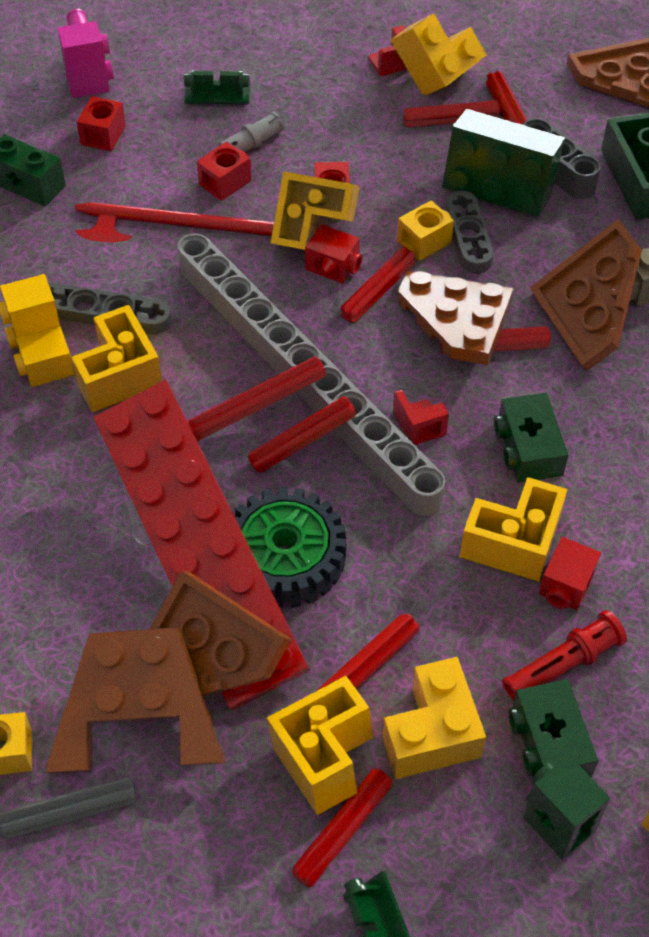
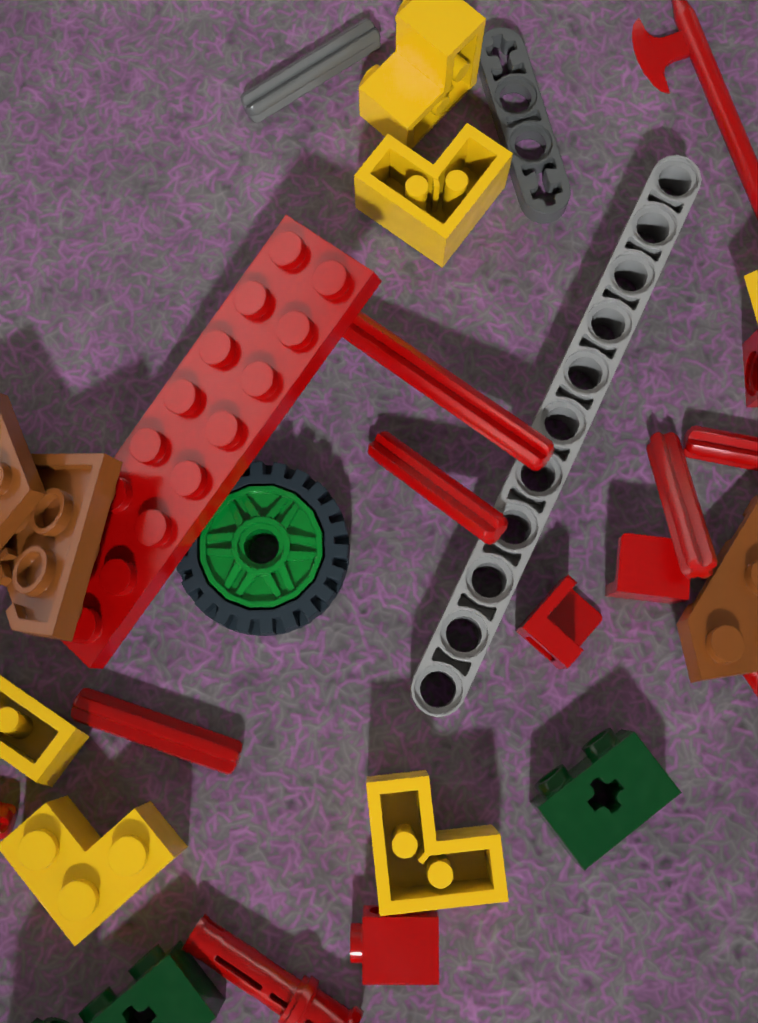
camera: 65 degrees right, 25 degrees up
(384, 324) = (681, 506): none -> red axle
(416, 356) = (648, 571): none -> red panel

